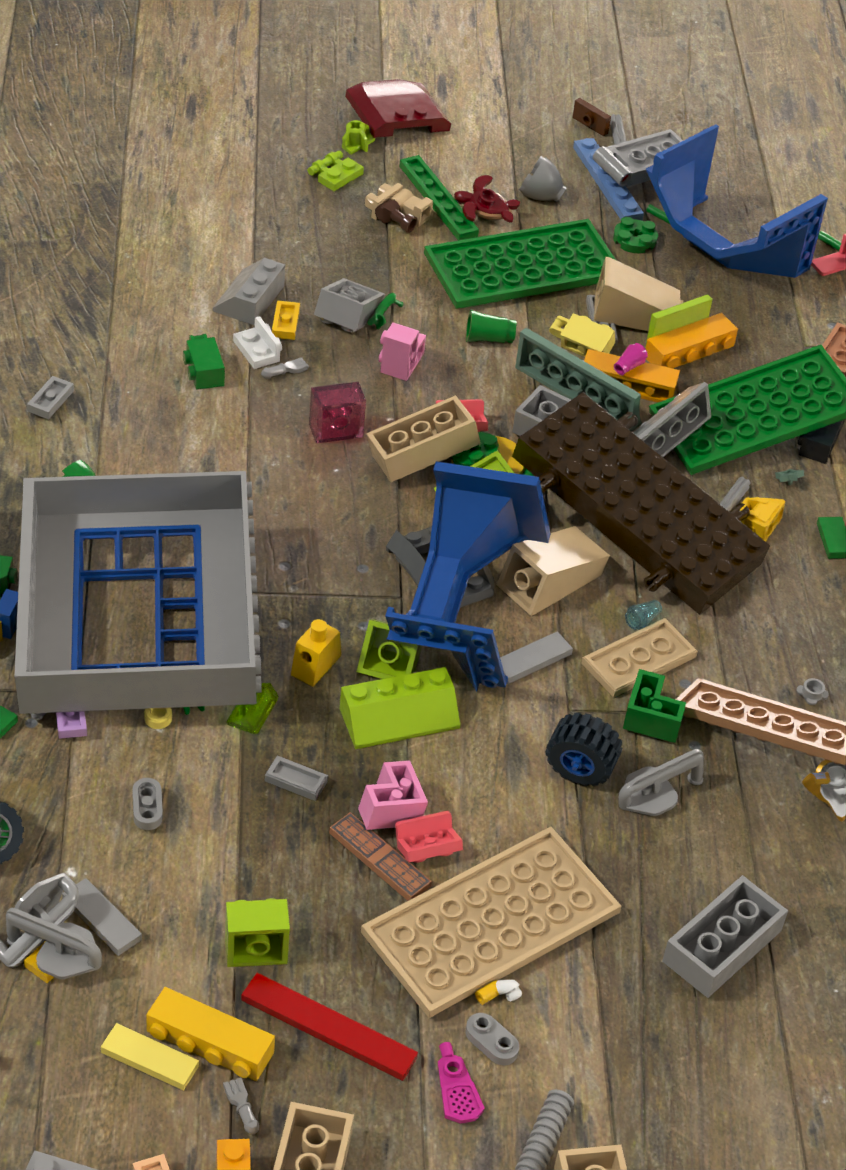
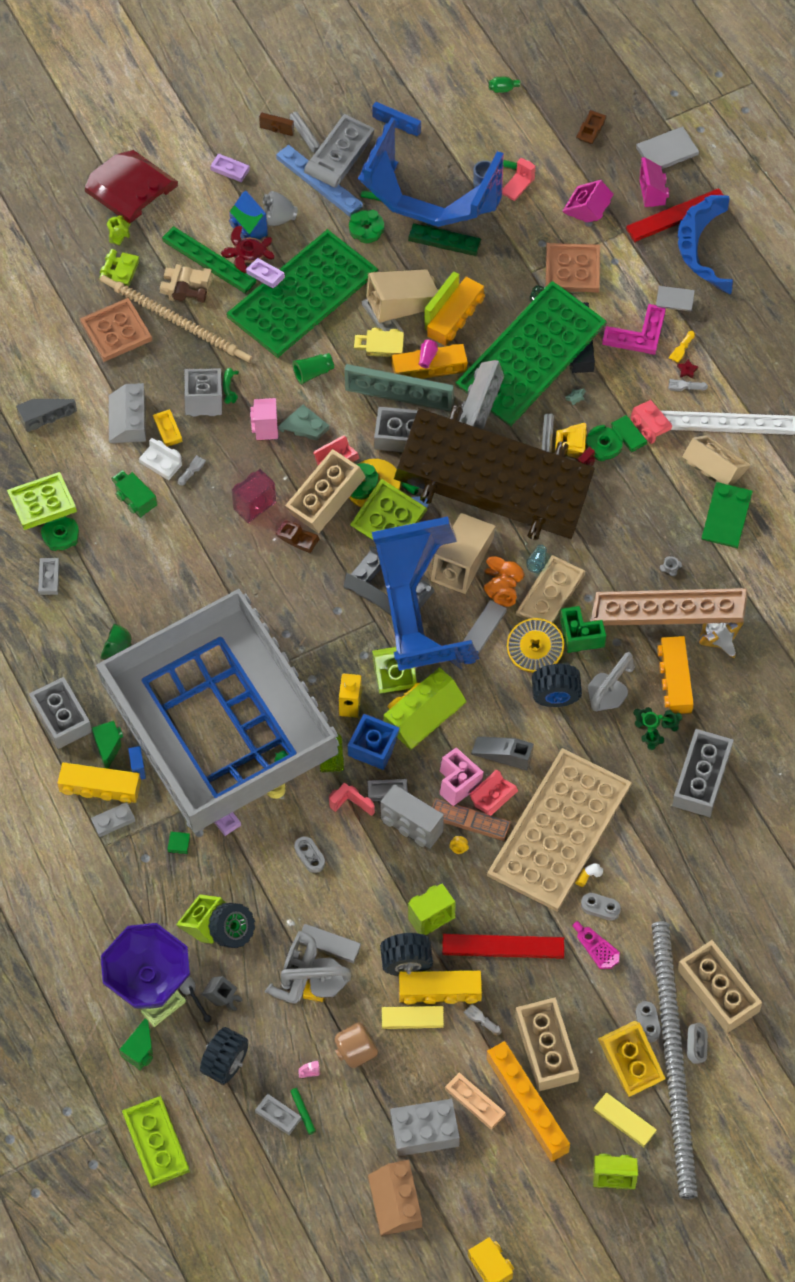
camera: 20 degrees left, 15 degrees up
(47, 1051) = (355, 1045): none -> medium nougat head
(94, 326) = (42, 501): none -> lime plate
(101, 373) = (64, 541): none -> green plate
(158, 252) = (44, 411): none -> dark grey slope
(188, 965) = (406, 953): none -> black wheel
(237, 755) = (346, 792): none -> coral bracket
(292, 216) = (116, 329): none -> nougat plate
(303, 814) = (411, 817): none -> light grey brick
(309, 713) = (373, 741): none -> blue slope
(346, 877) = (459, 844): none -> yellow plate
(362, 475) = (295, 536): none -> reddish brown slope
(368, 234) = (213, 339): none -> tan hose
(446, 377) = (304, 423): none -> sand green wing
(476, 798) = (505, 751): none -> dark grey slope
(491, 226) = (265, 273): none -> lavender plate
(507, 173) = (249, 216): none -> blue slope
(515, 133) = (229, 167): none -> lavender plate
(581, 618) = (502, 586): none -> orange animal
(596, 687) = (537, 631): none -> piece
(684, 841) = (652, 721): none -> dark green plant
(719, 279) = (444, 239): none -> dark green plate
(732, 162) = (402, 121): none -> blue plate
(752, 811) = (676, 675): none -> light orange brick
(770, 535) = (587, 457): none -> dark red plate
(806, 542) = (608, 451): none -> green plate

